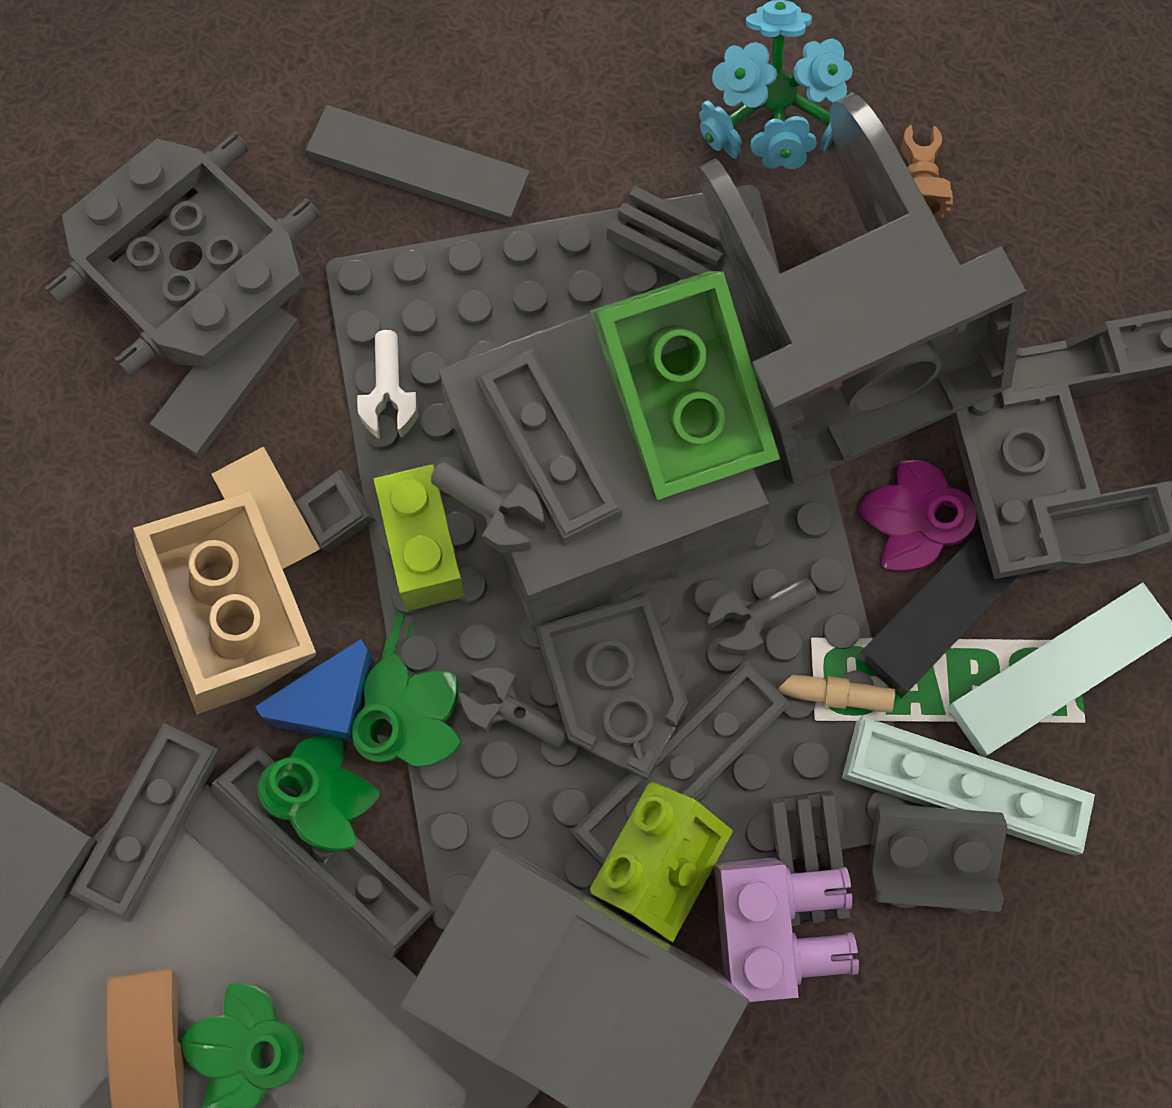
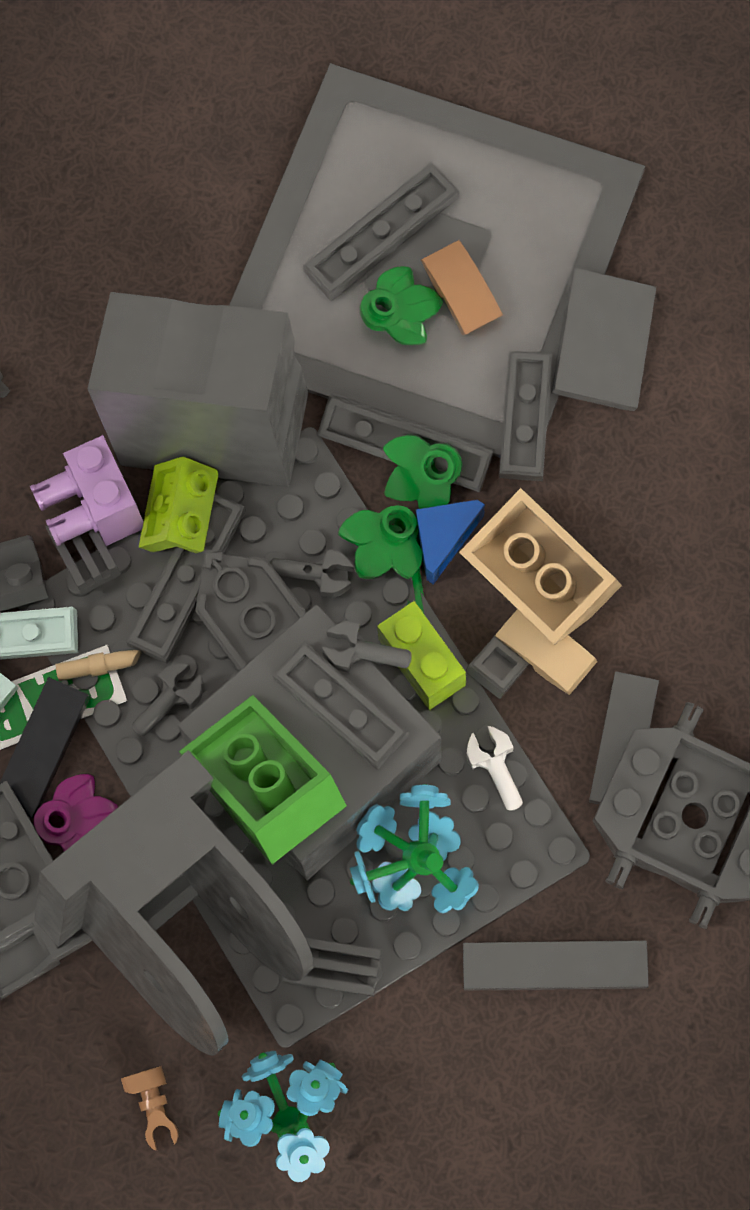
camera: 165 degrees right, 0 degrees up
(513, 268) = (423, 856): none -> medium azure plant

